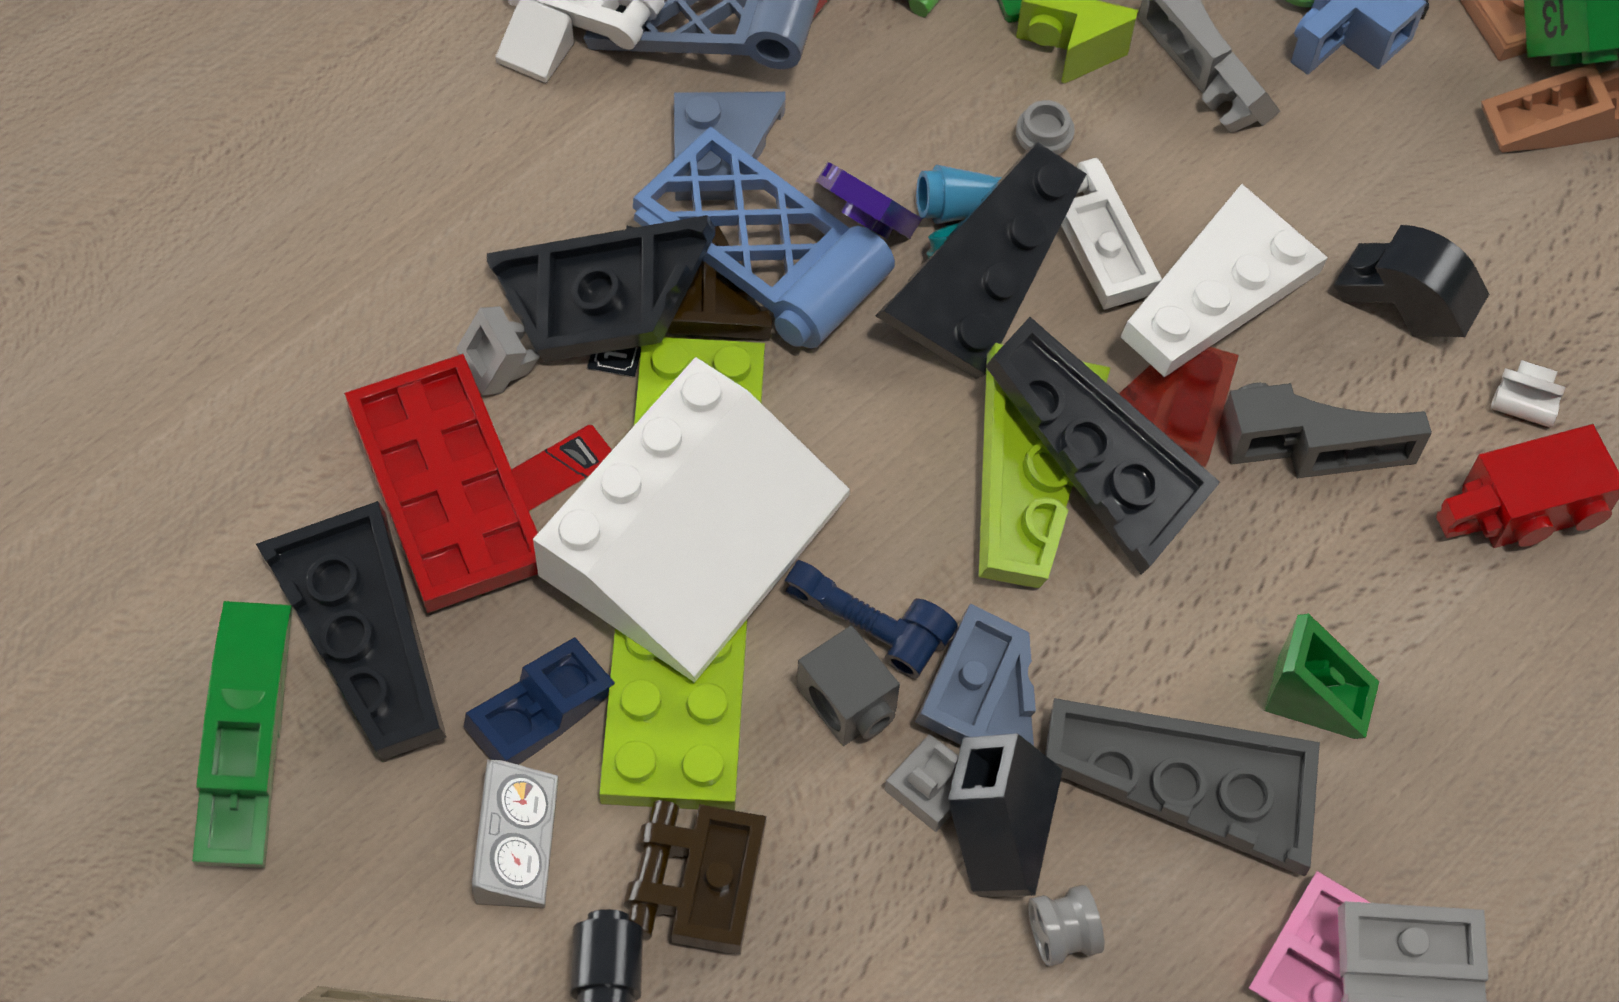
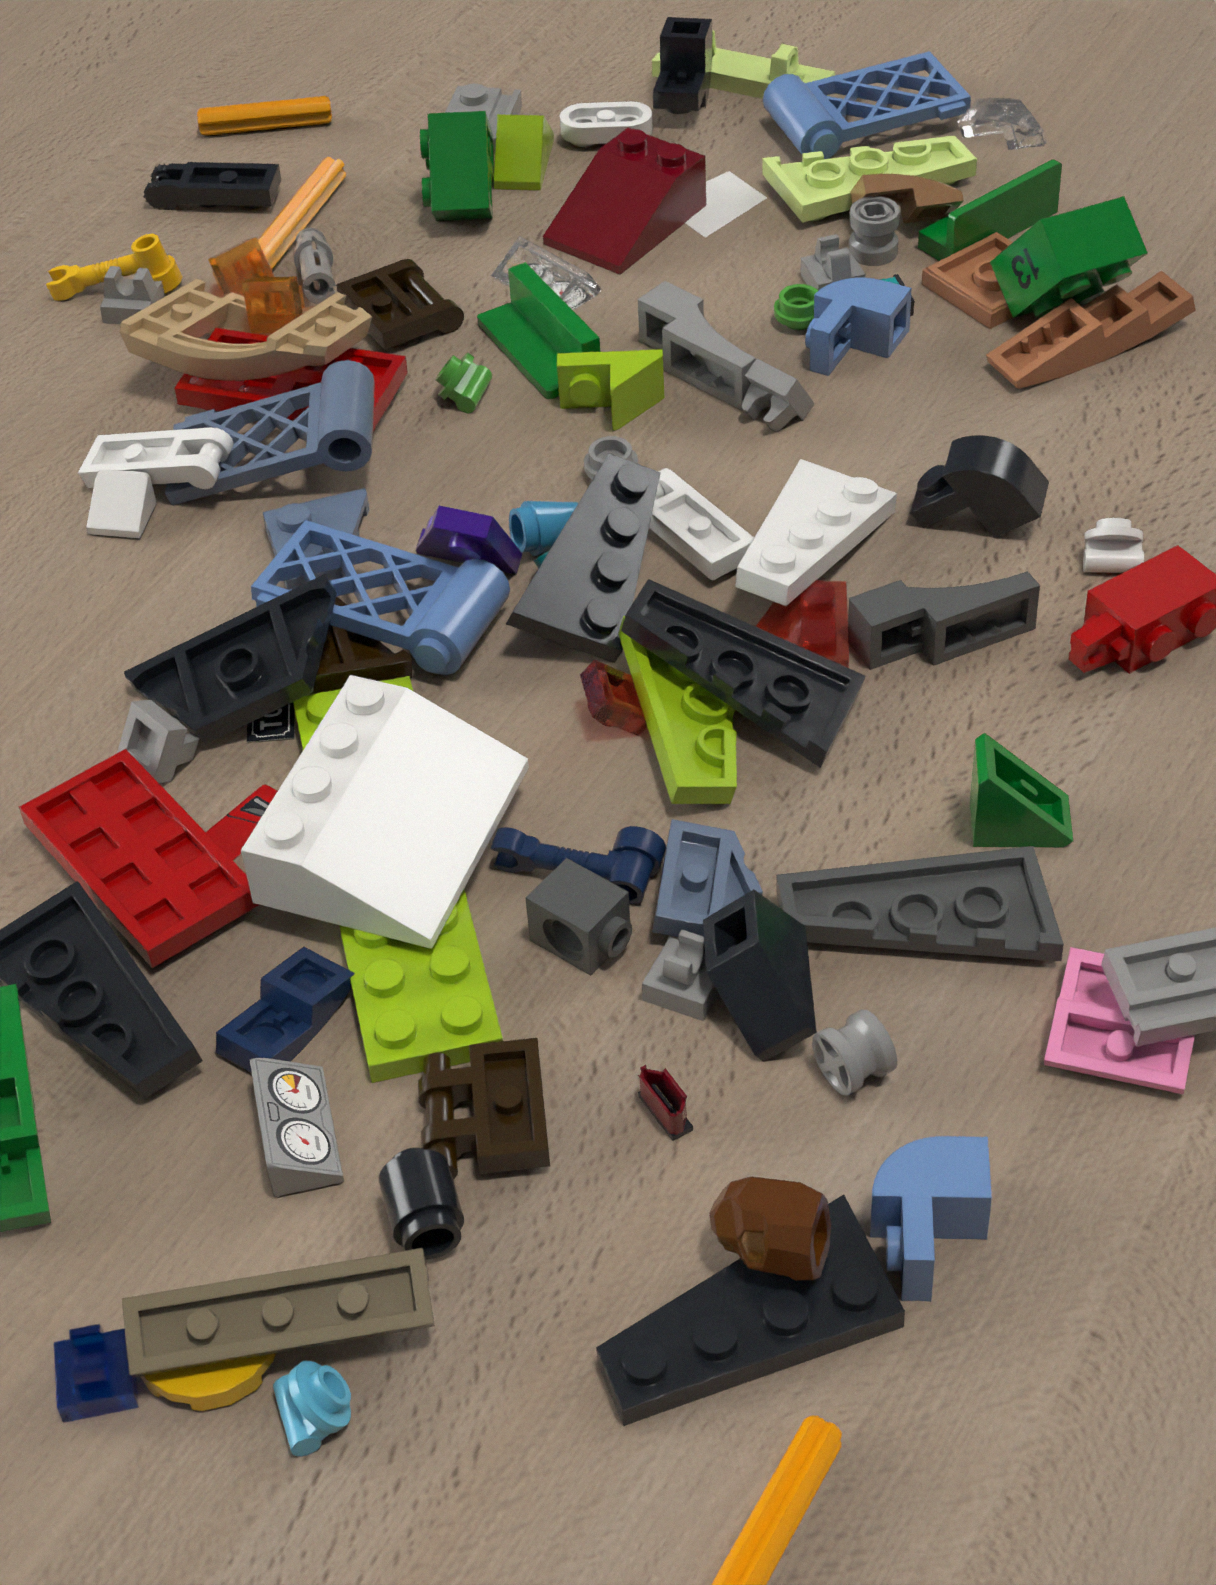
camera: 10 degrees left, 15 degrees down
(869, 919) = (665, 1101): none -> dark red piece
(957, 432) = (613, 698): none -> clear red plate

